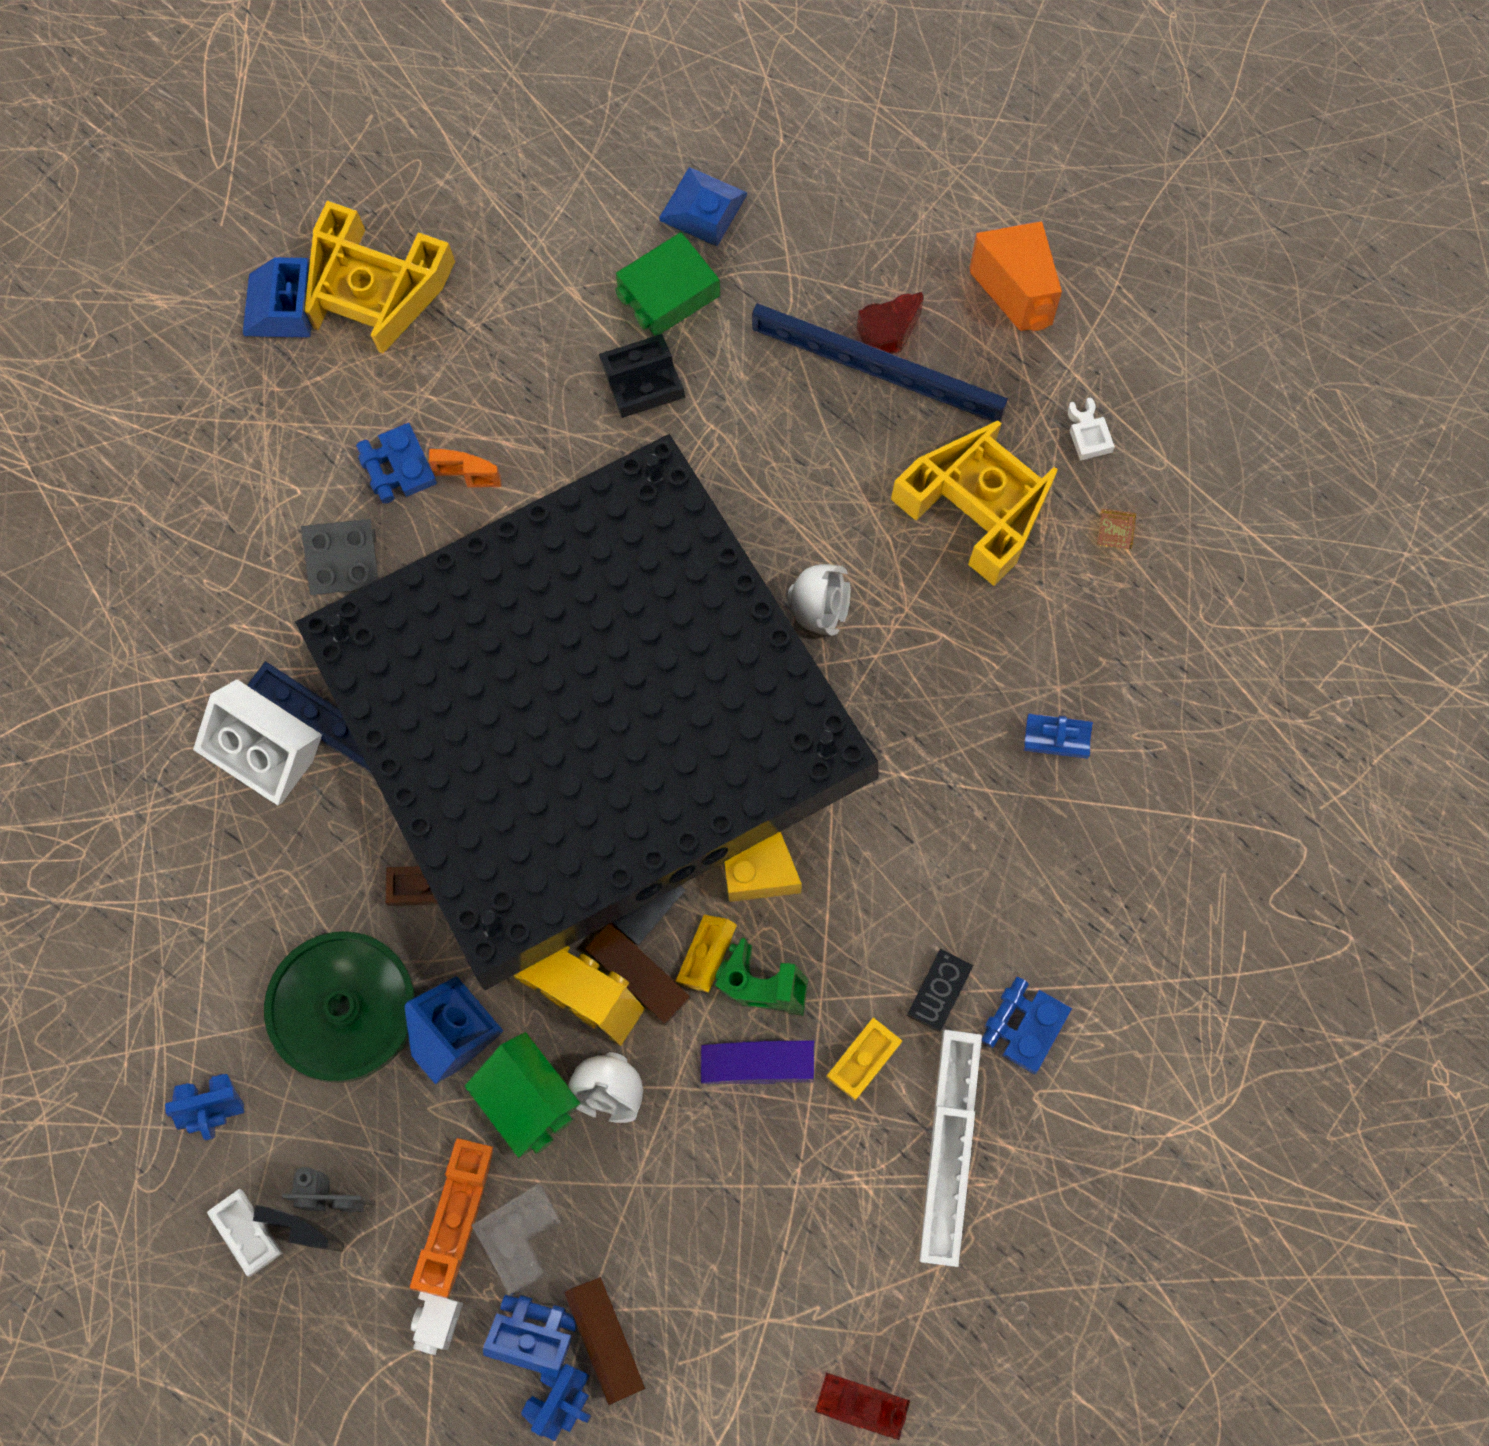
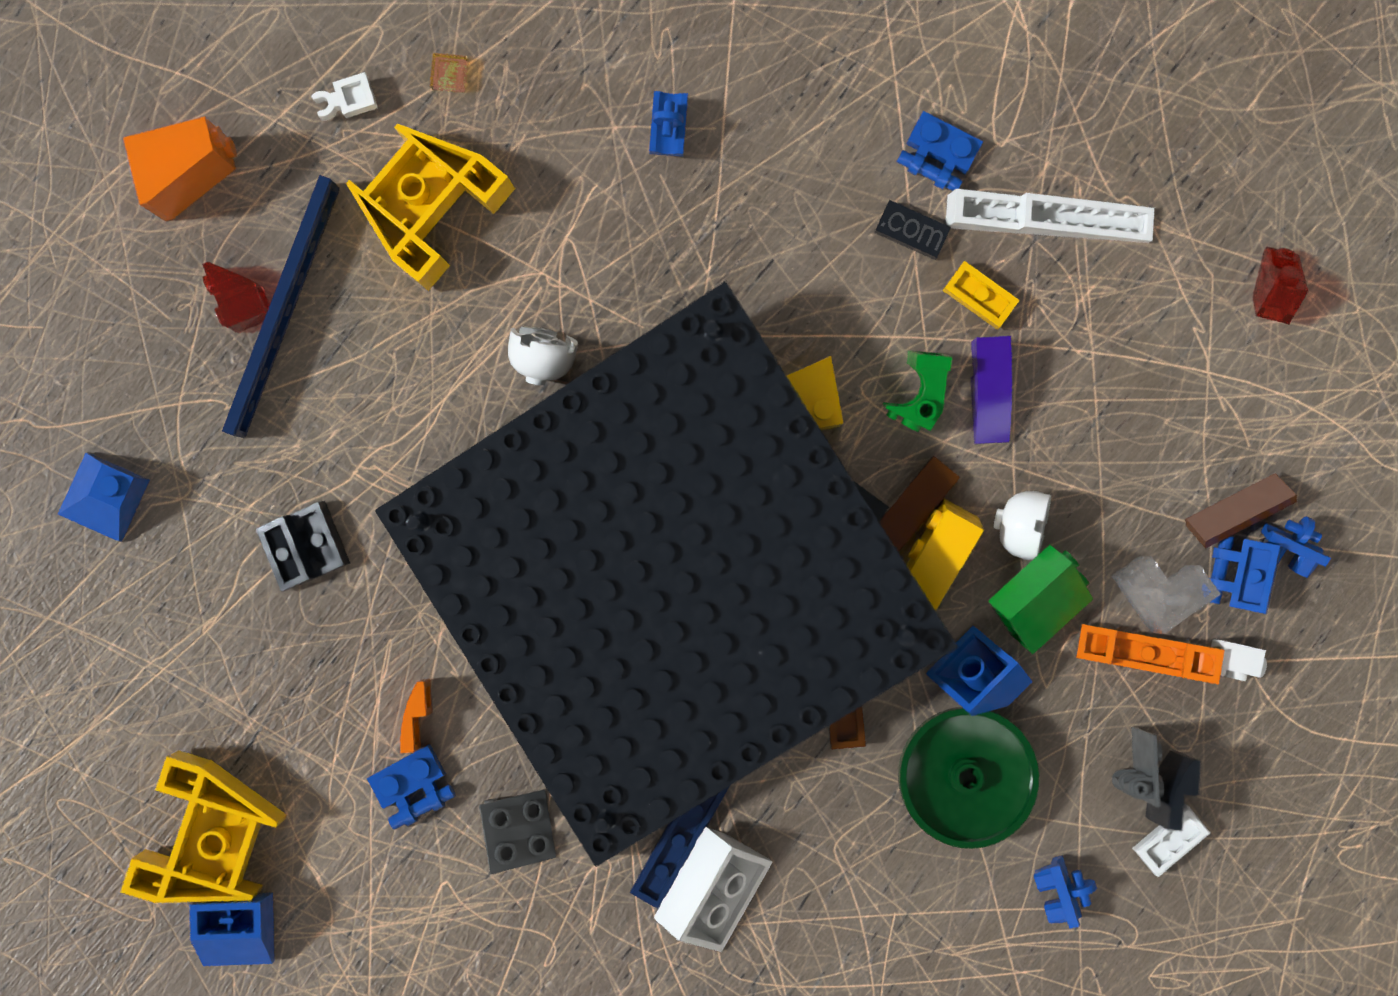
camera: 95 degrees left, 15 degrees up
(667, 284) = (200, 526): green brick -> none
(706, 953) = (894, 443): yellow plate -> none

